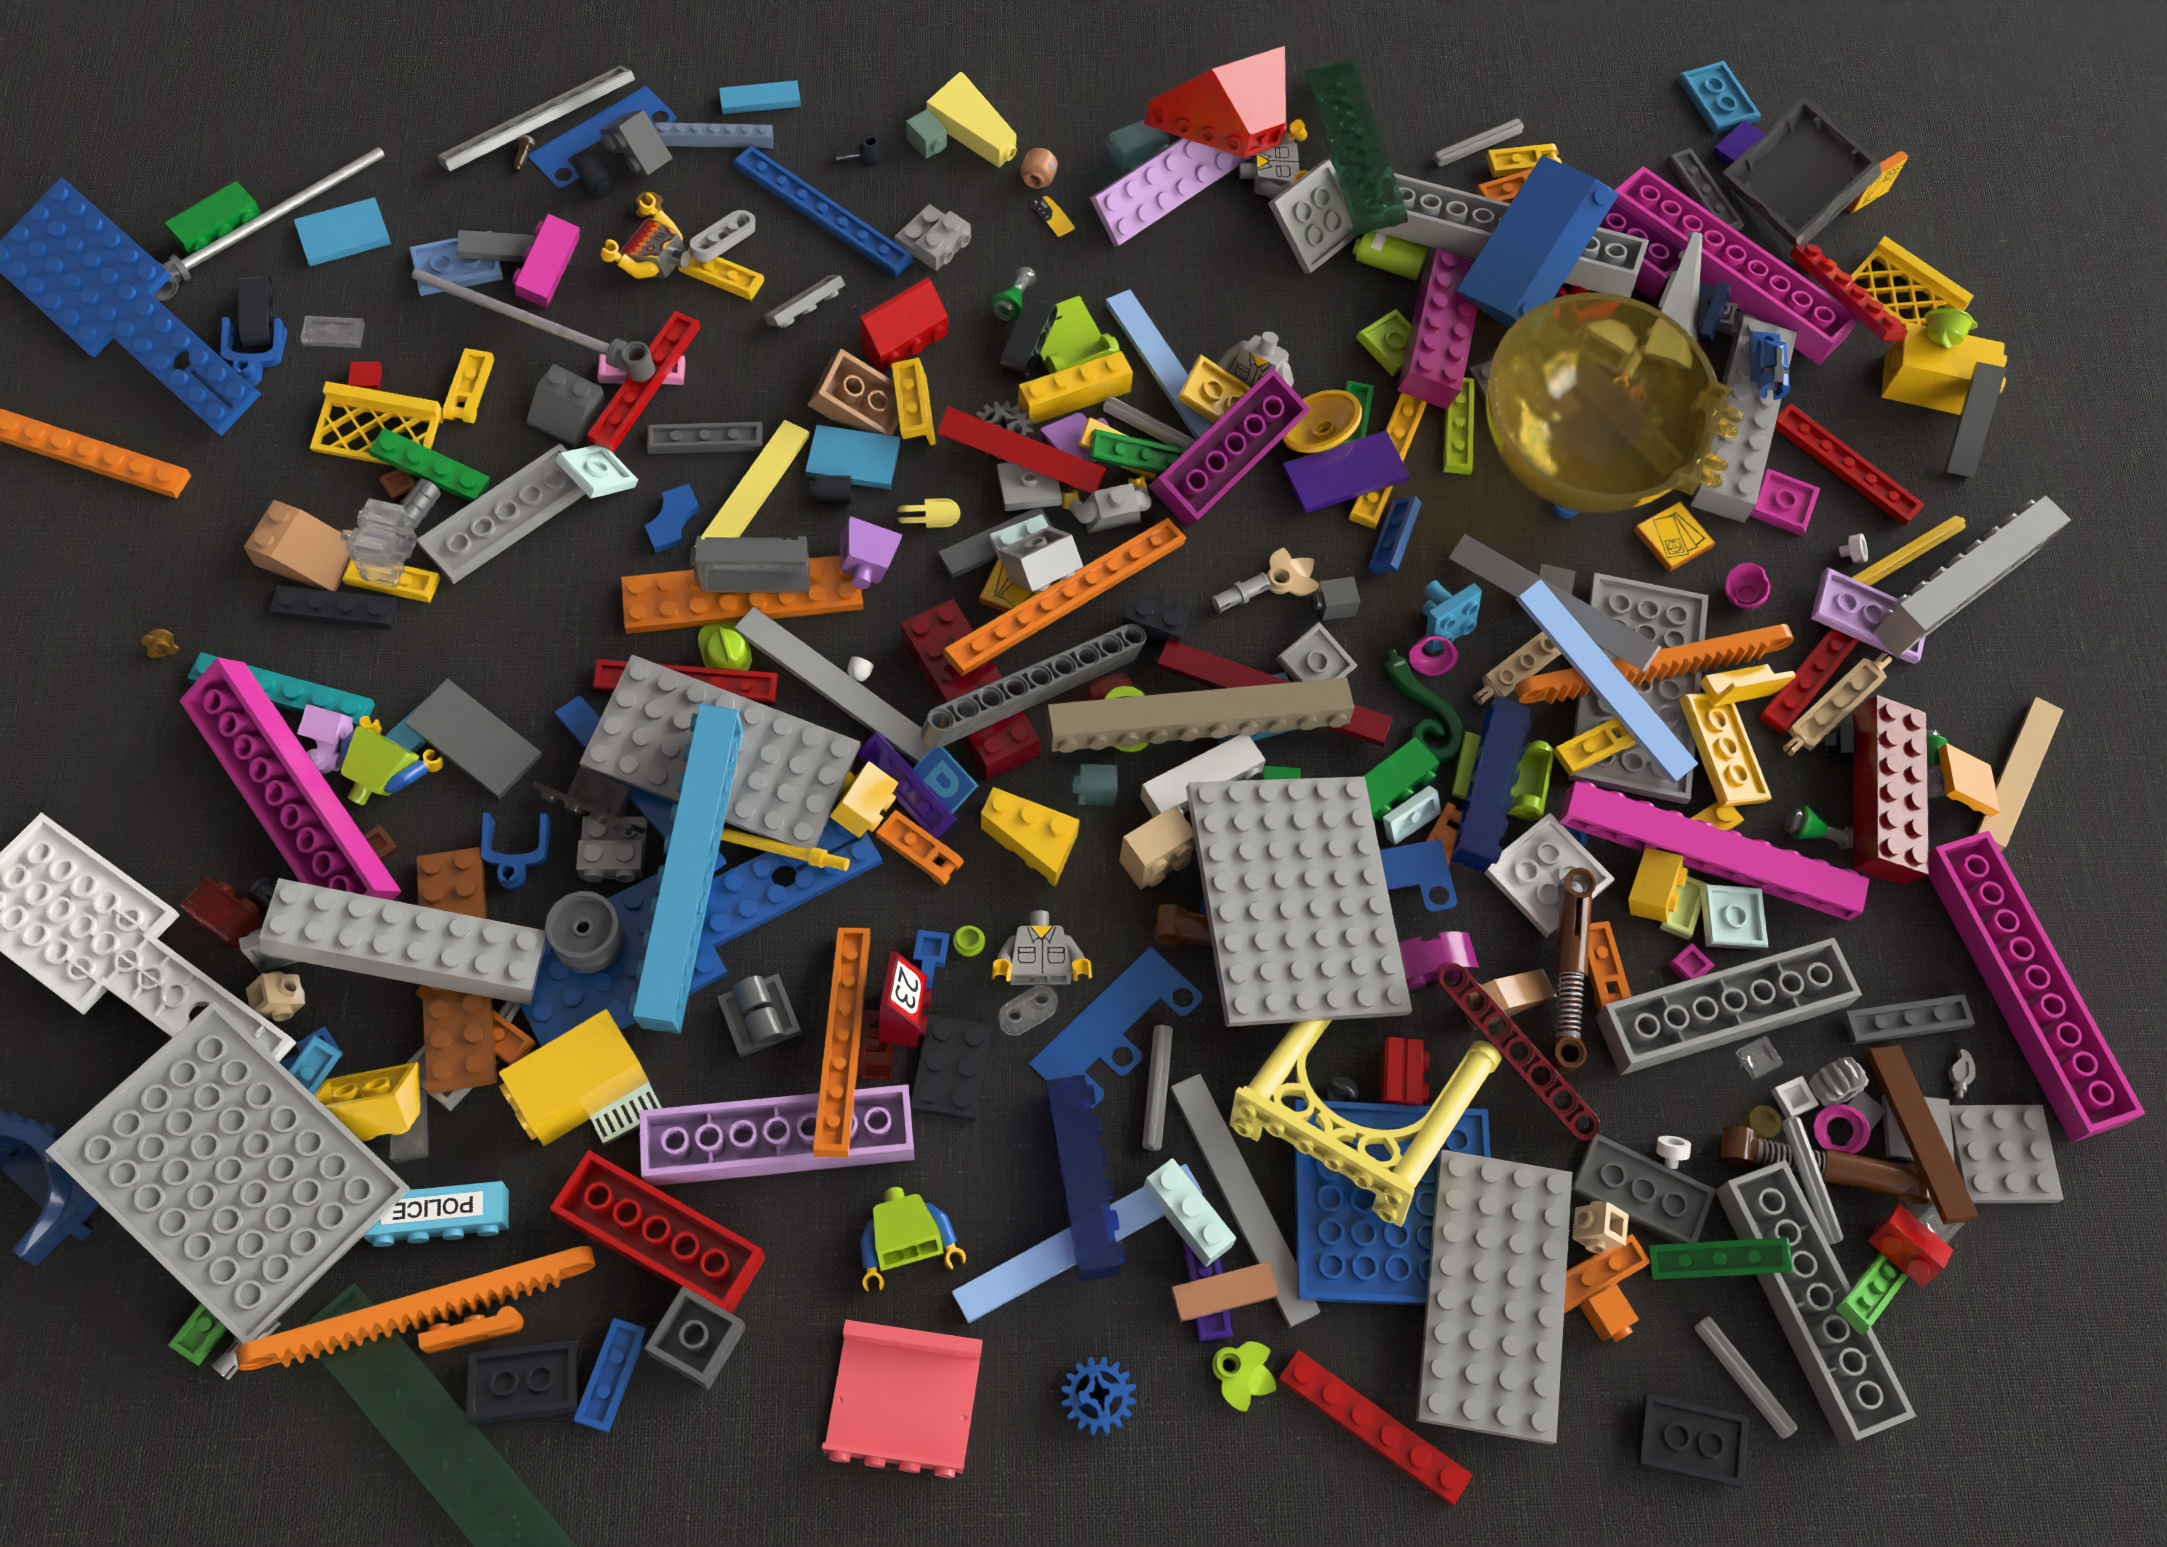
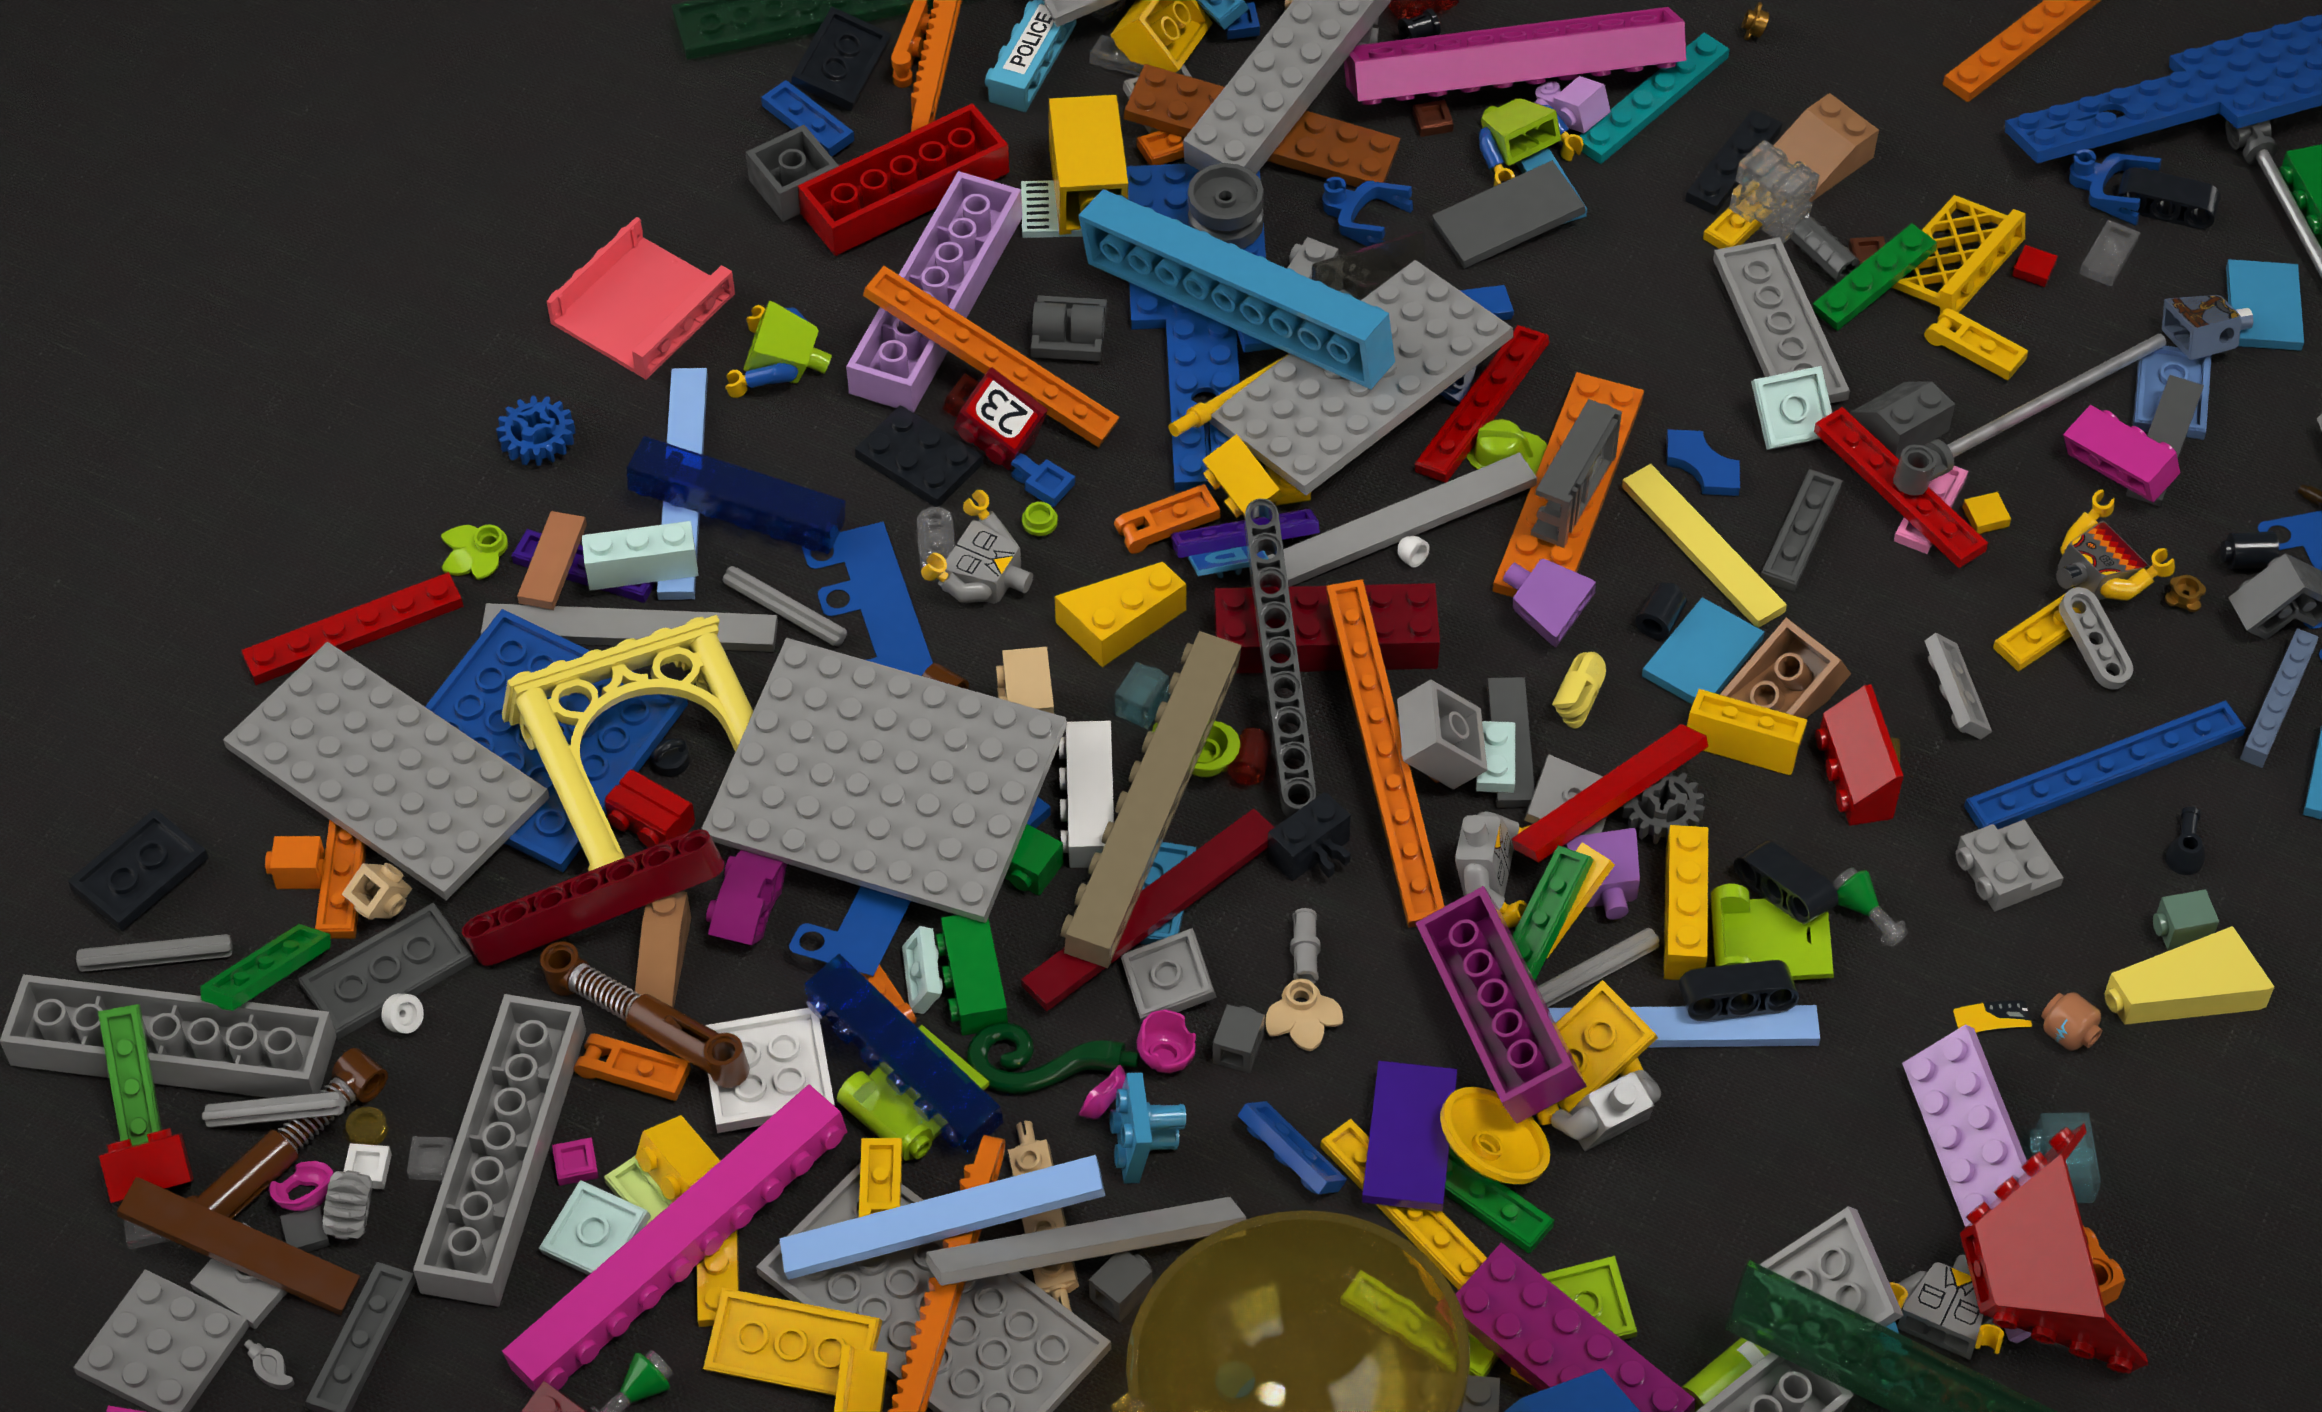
camera: 125 degrees right, 10 degrees down
(391, 250) = (2204, 324): none -> sand blue torso
(632, 331) = (1986, 512): none -> yellow tile
(1130, 333) = (1738, 990): none -> black beam
(1371, 637) = (1165, 1041): none -> dark pink hair

